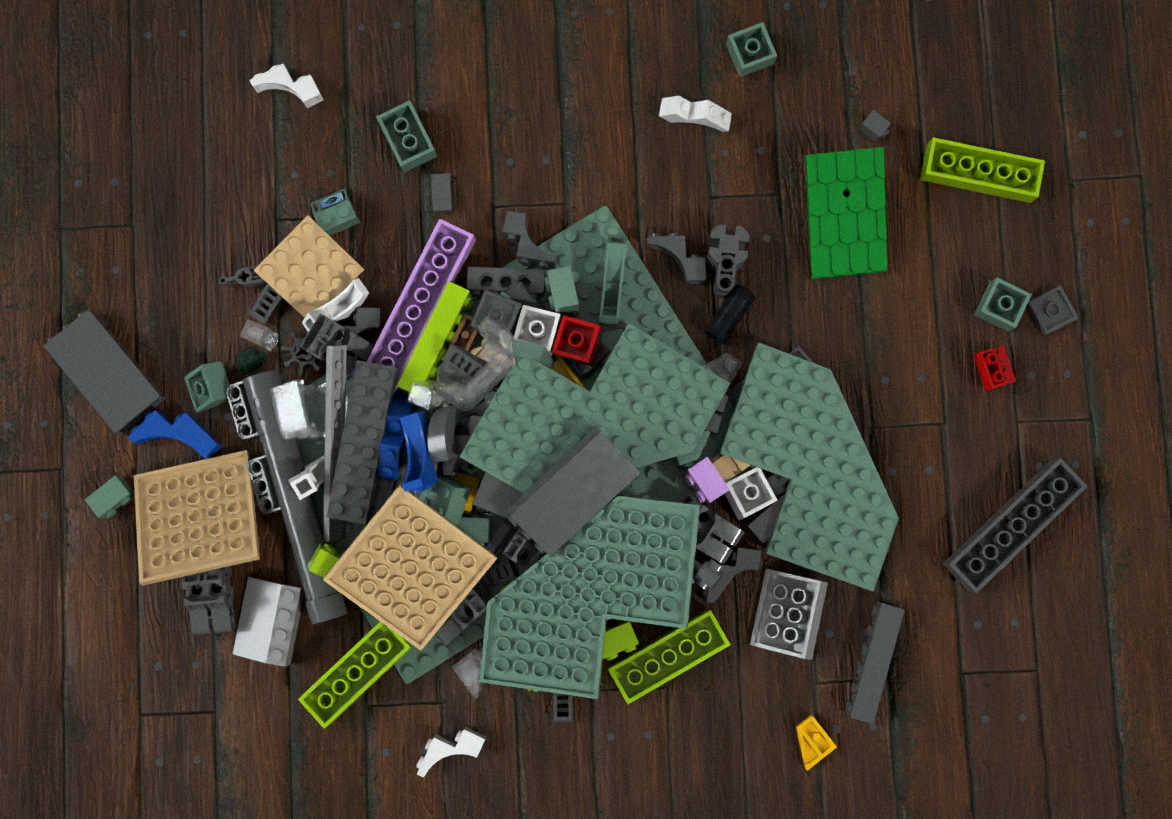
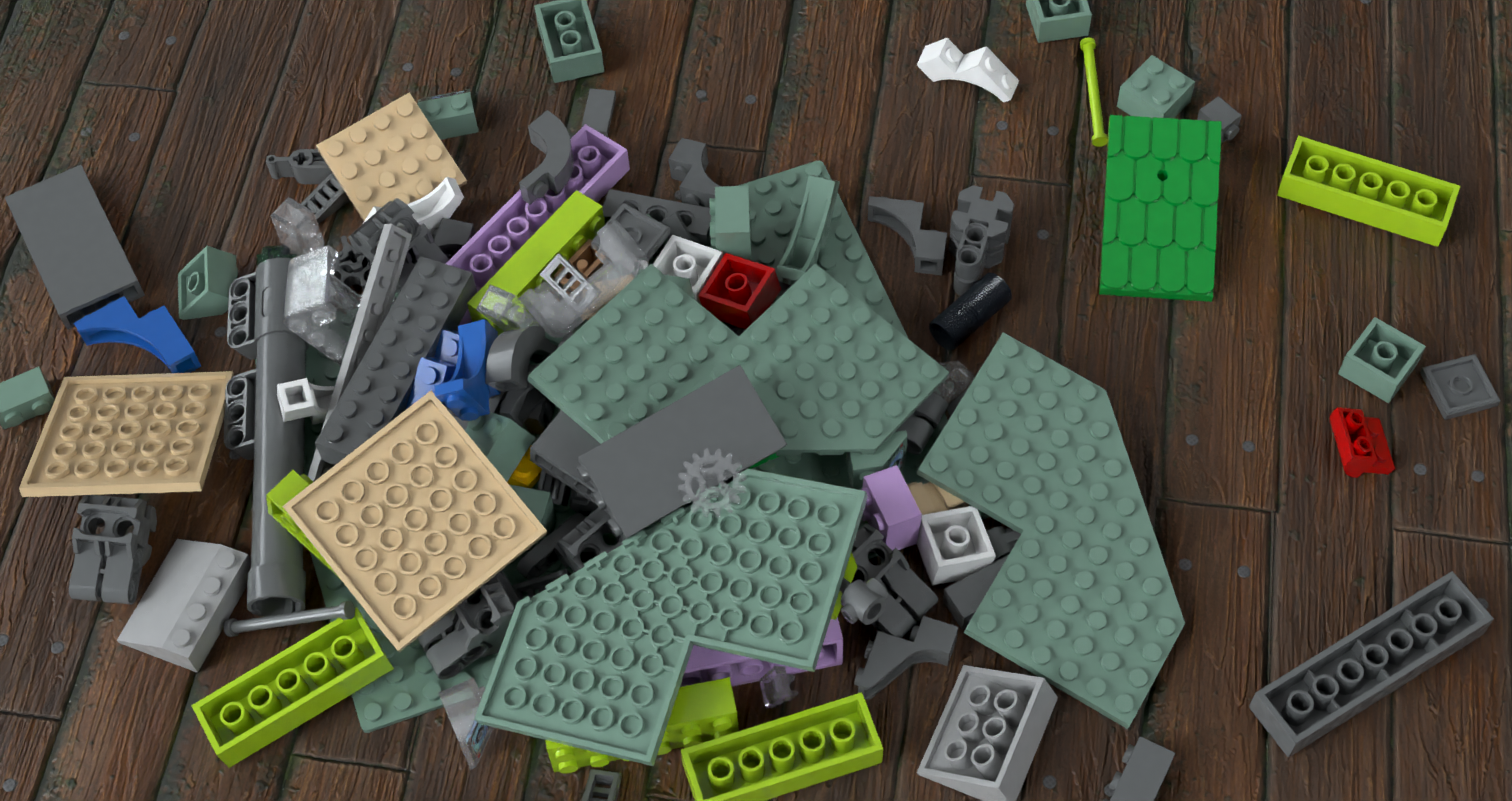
camera: 15 degrees right, 25 degrees down
(304, 632) = (345, 610): none -> dark grey bar
(422, 240) = (554, 172): none -> dark grey arch
(607, 518) = (720, 471): none -> clear gear
(794, 153) = (1099, 138): none -> lime bar
(829, 111) = (1155, 91): none -> sand green brick

